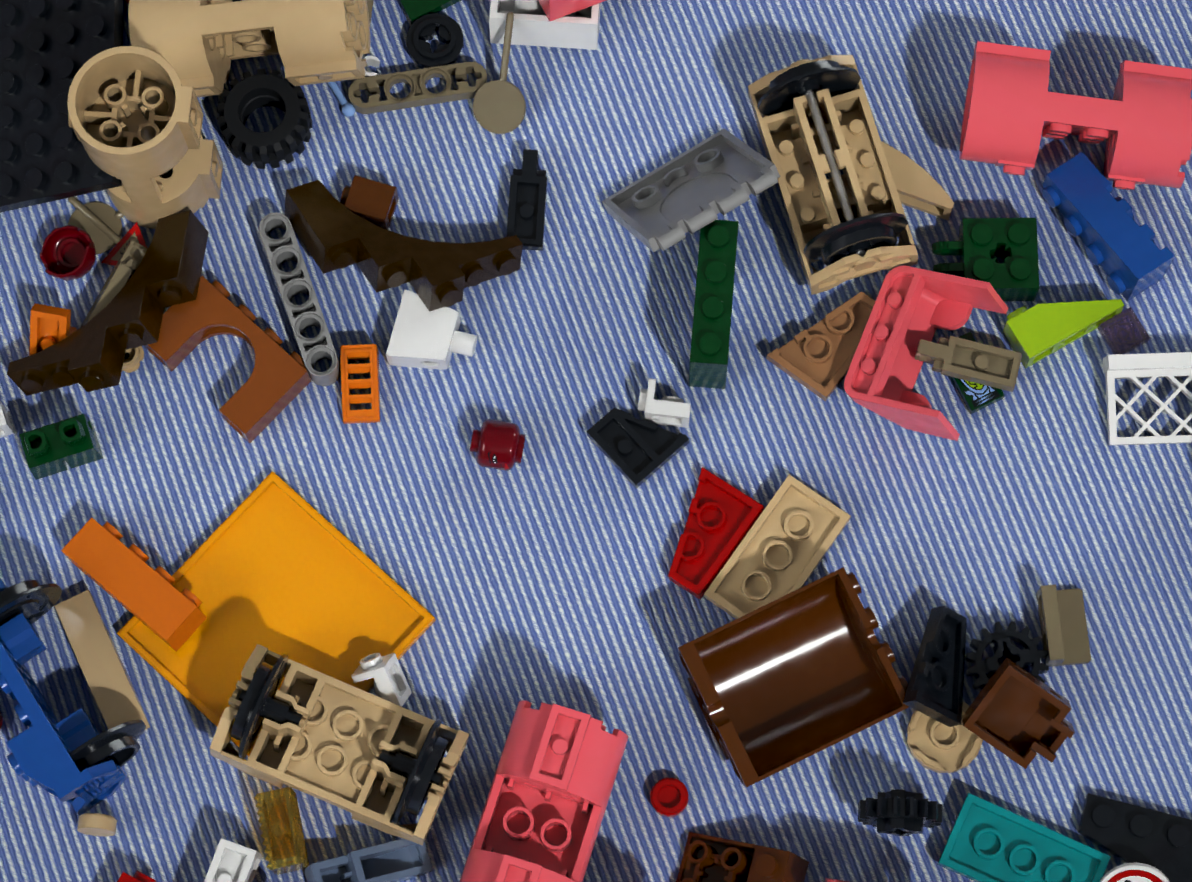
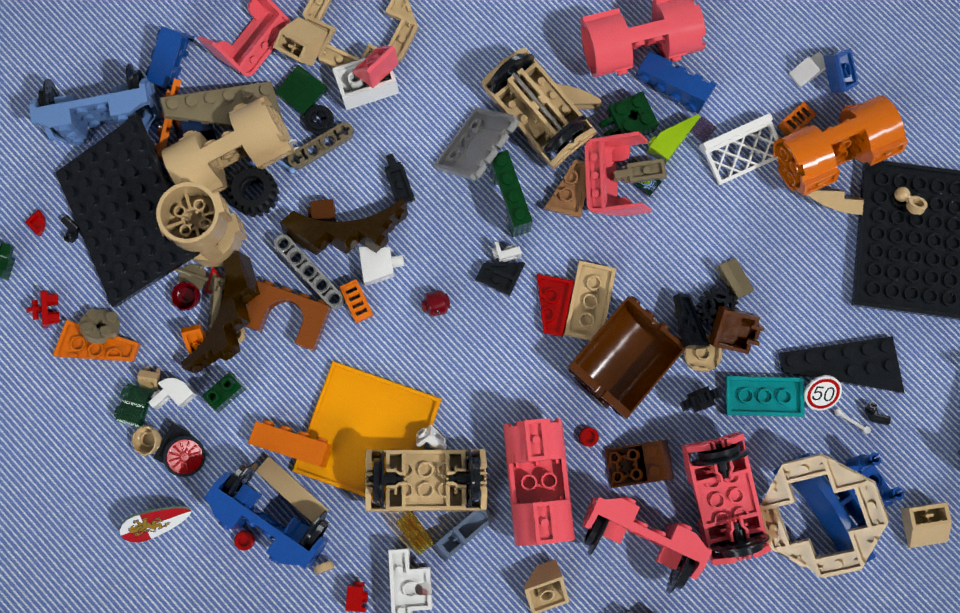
camera: 30 degrees left, 5 degrees up
(499, 103) = (363, 138): dark tan piece -> none

